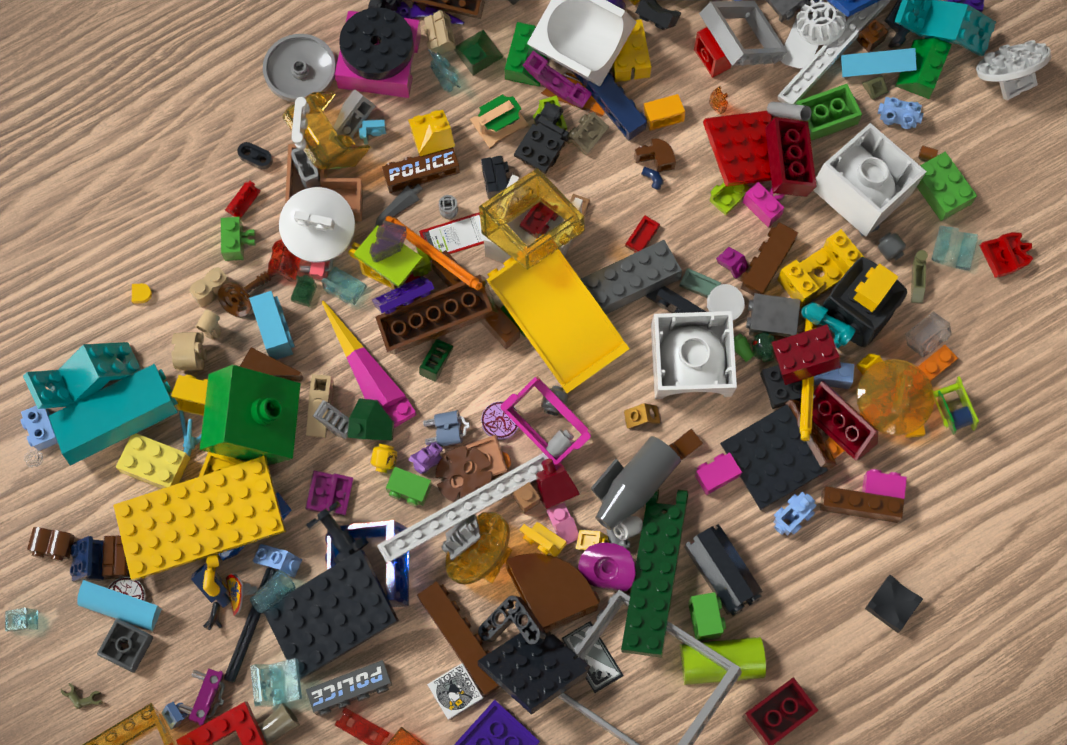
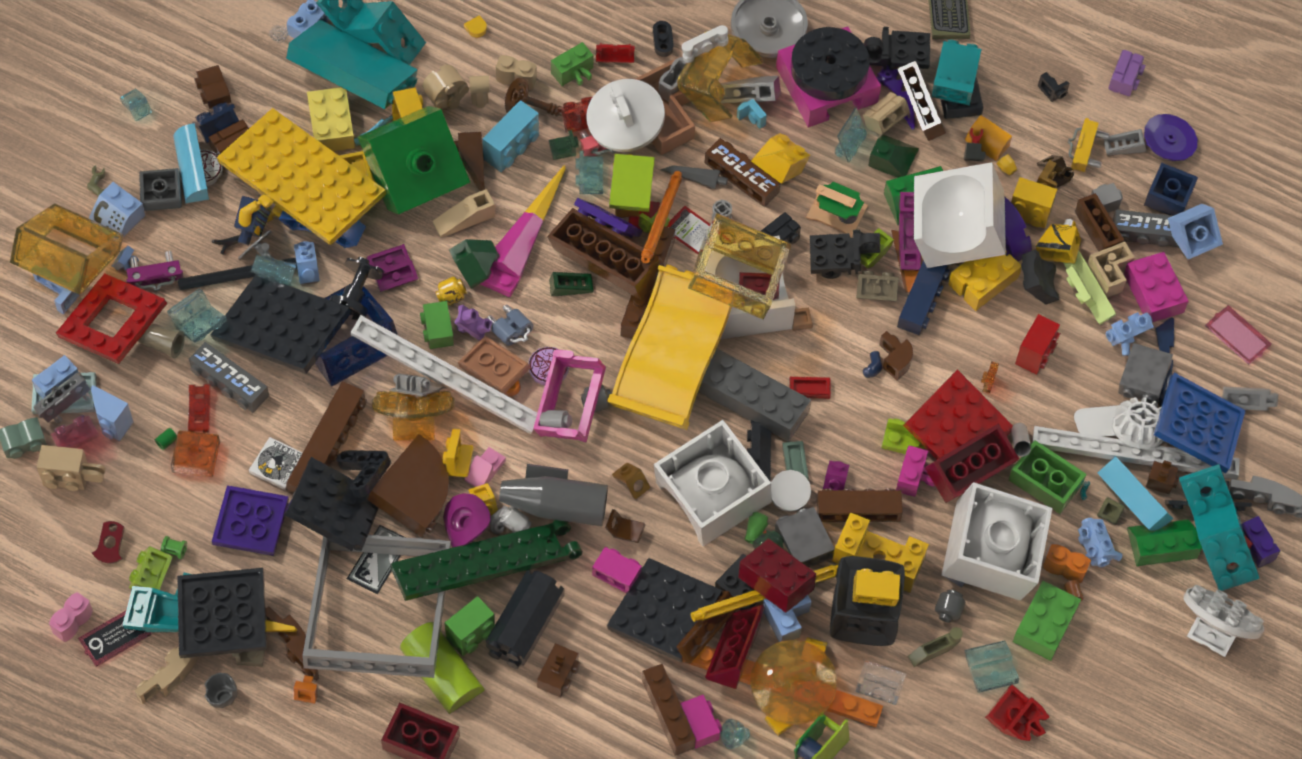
camera: 55 degrees right, 10 degrees down
(121, 695) = (117, 209): none -> light blue slope
(341, 428) = (457, 213): light grey slope -> none
(389, 241) = (641, 171): slope -> none
(458, 458) = (474, 347): reddish brown piece -> none
(526, 497) = (488, 423): medium nougat brick -> none
(554, 484) = (515, 437): dark red torso -> none
(664, 112) = (945, 338): light orange brick -> none
(714, 17) = (1106, 355): light grey window -> none
(779, 569) = (558, 670): none -> reddish brown brick
(799, 508) = (627, 656): light blue brick -> none
(818, 315) = (827, 570): teal piece -> none
(909, 467) = (734, 734): none -> clear light blue brick
(910, 140) = (1066, 563): none -> orange brick

